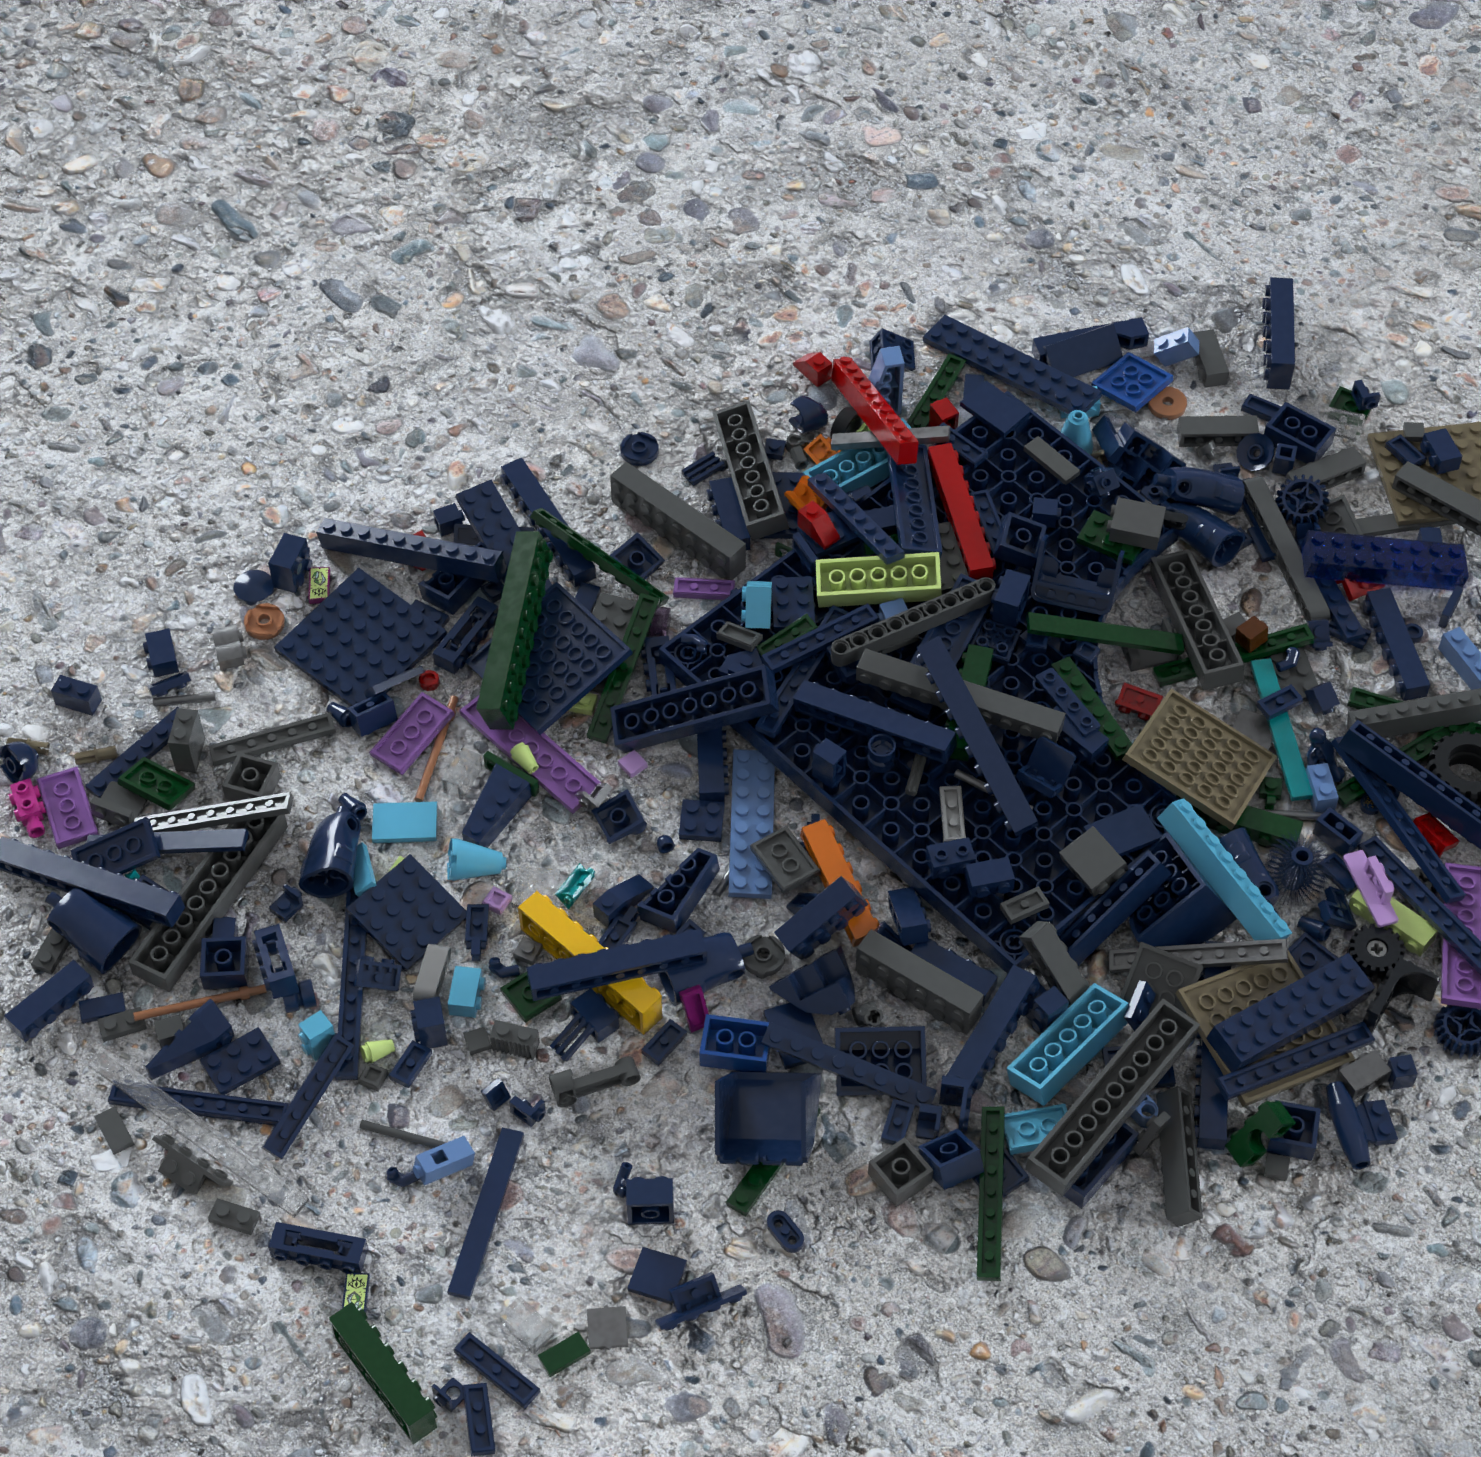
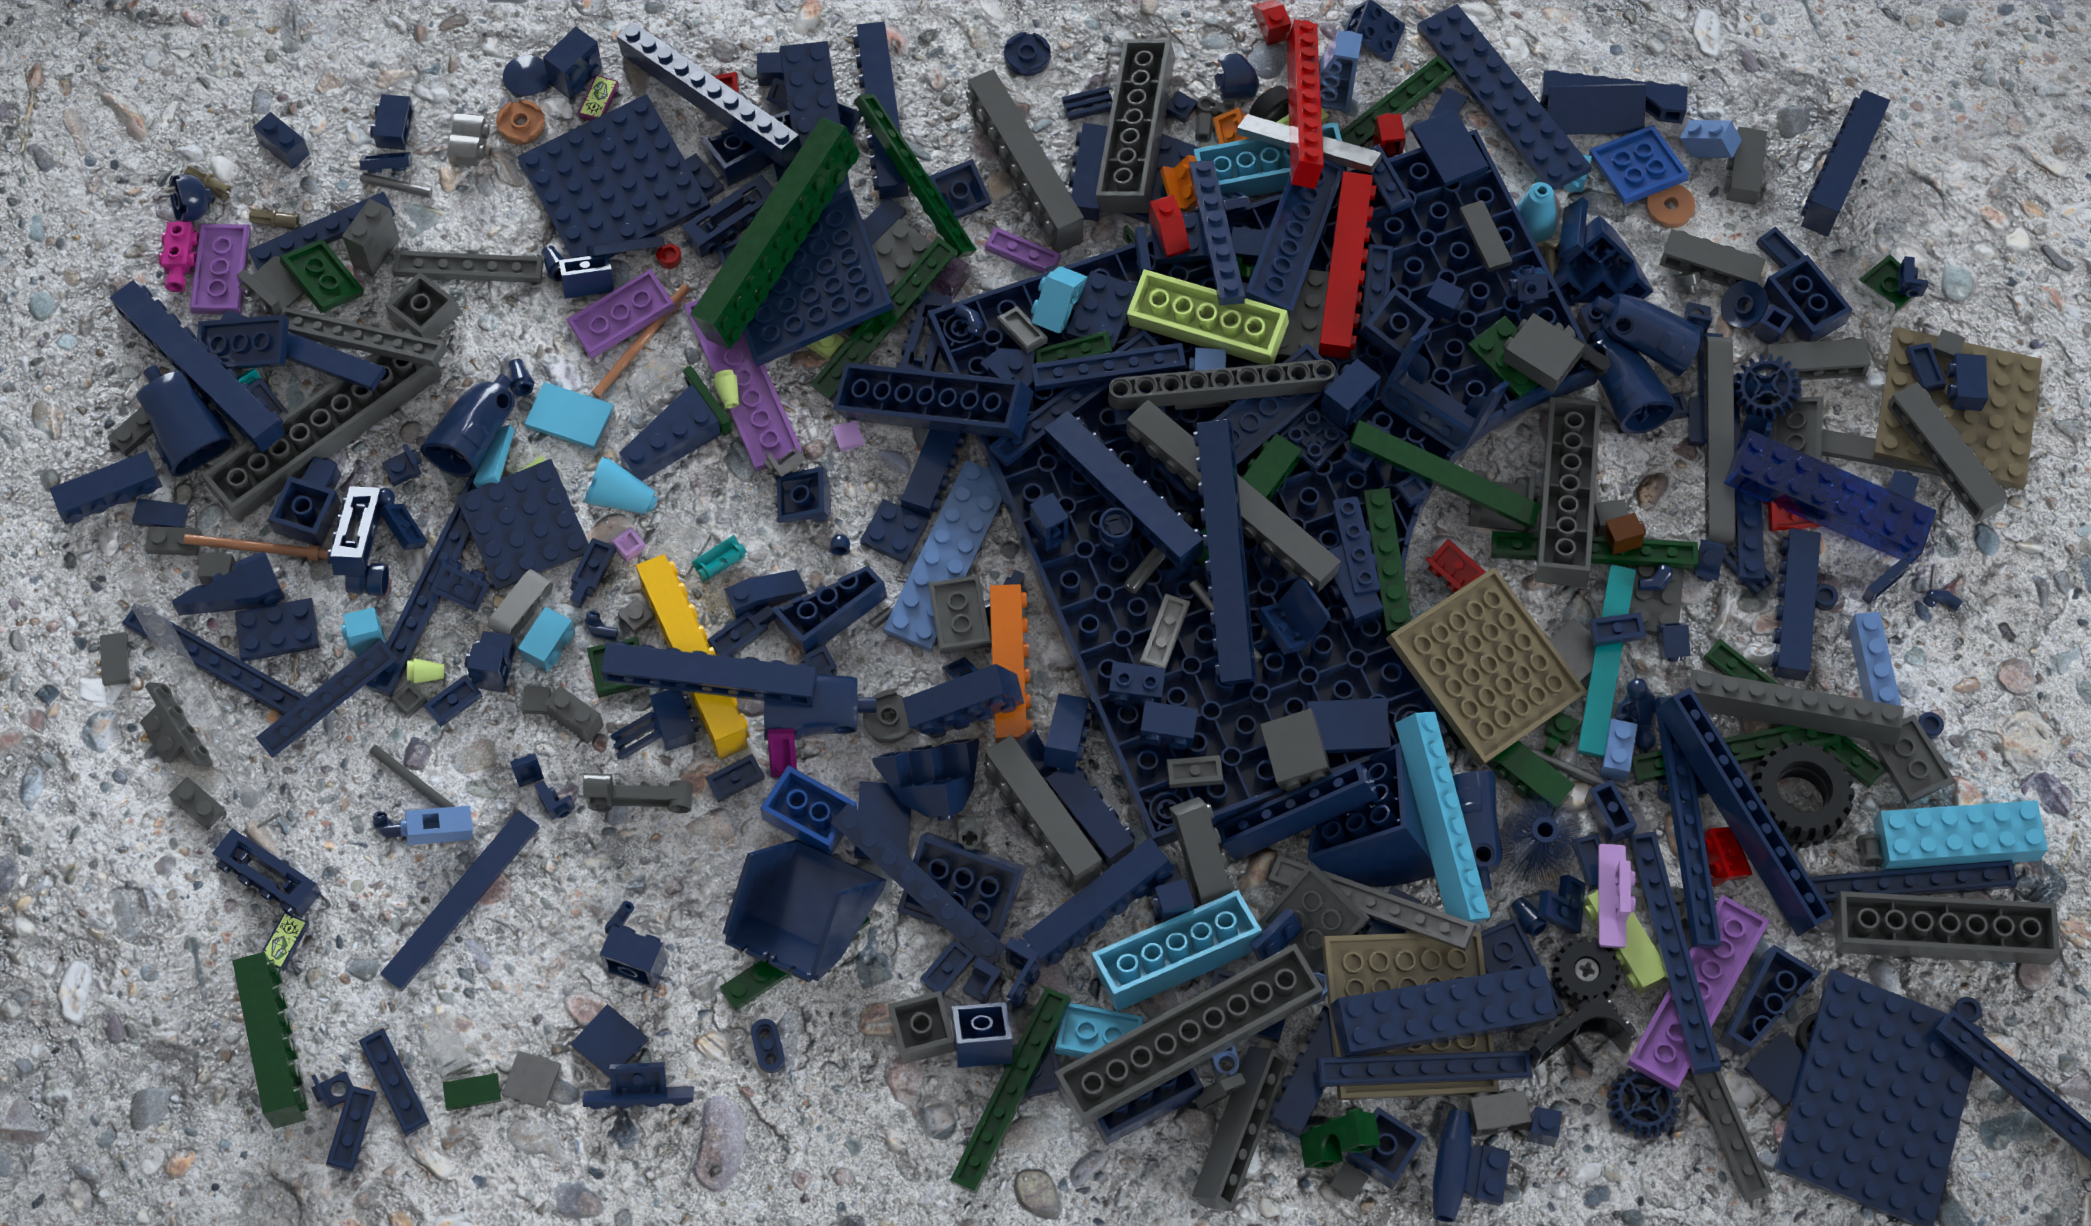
camera: 20 degrees right, 10 degrees up
(303, 944) = (400, 522): none -> dark blue plate

